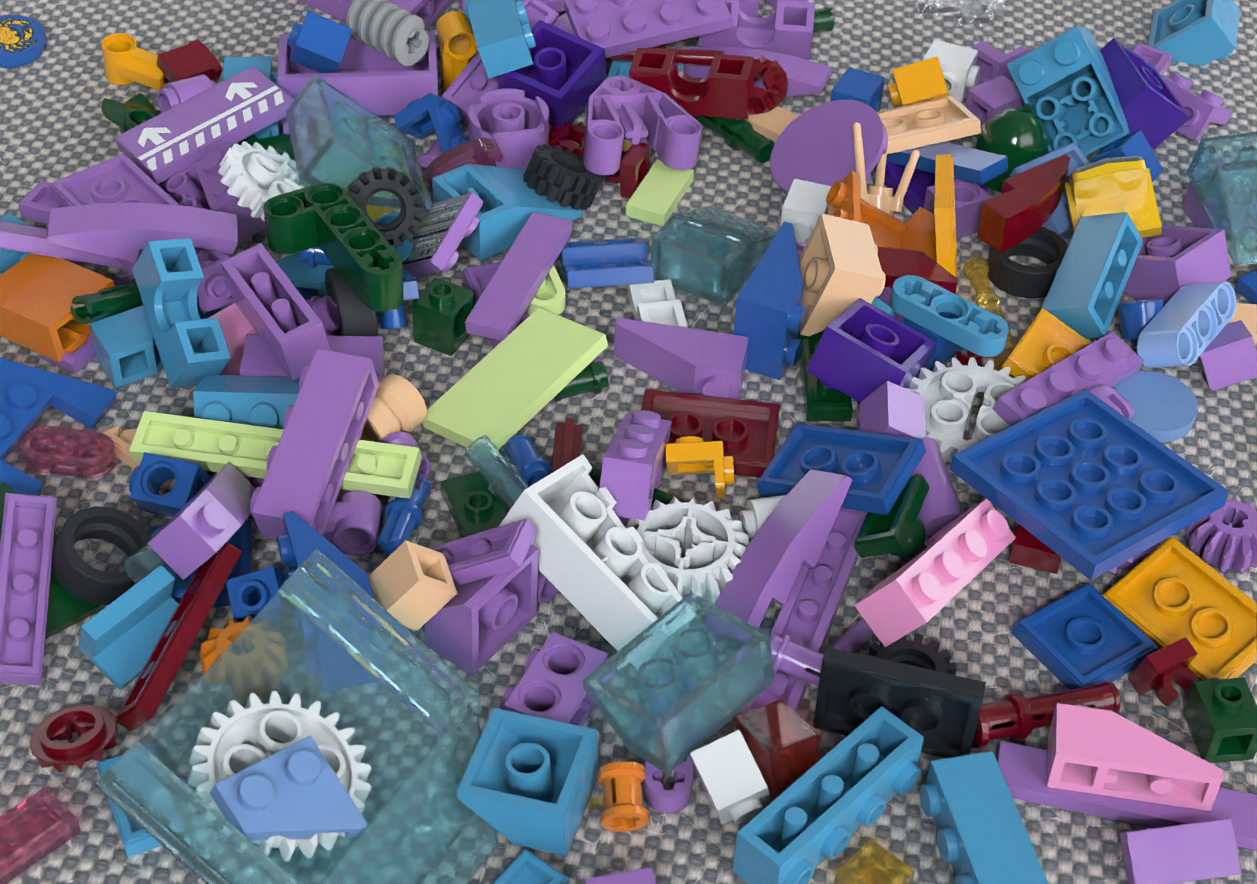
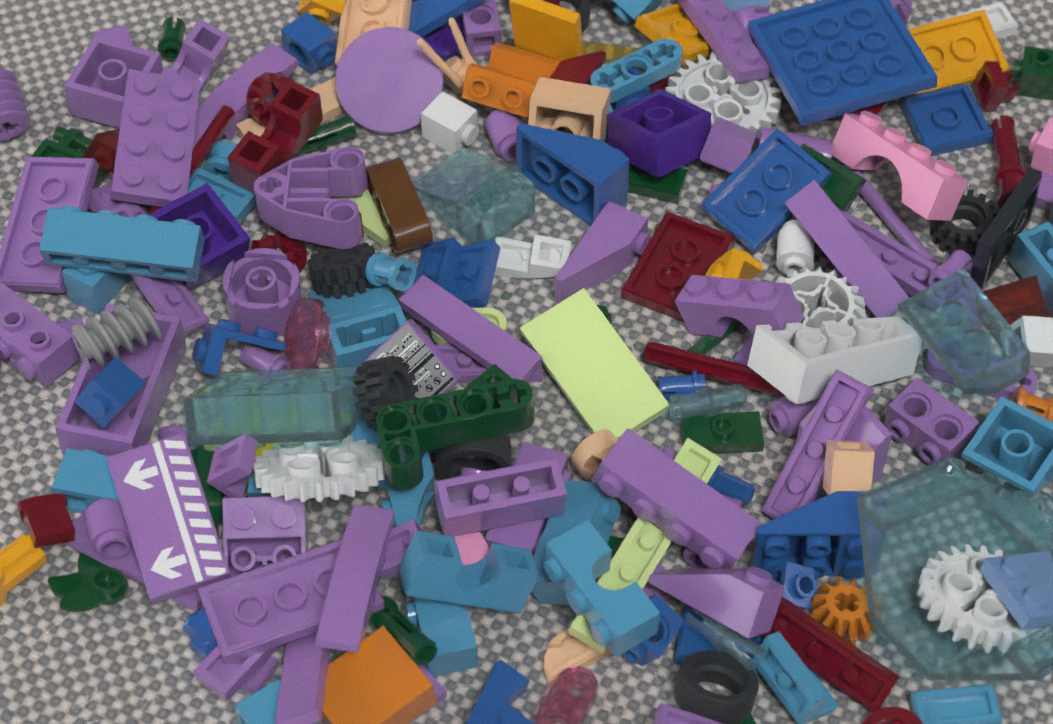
camera: 70 degrees left, 10 degrees up
(144, 422) = (616, 616): none -> dark azure arch
(271, 134) = (233, 465): none -> medium lavender bracket
(457, 51) = (127, 284): light orange piece -> none
(548, 197) = (384, 270): none -> dark azure bush
(663, 191) = (398, 205): none -> reddish brown beam

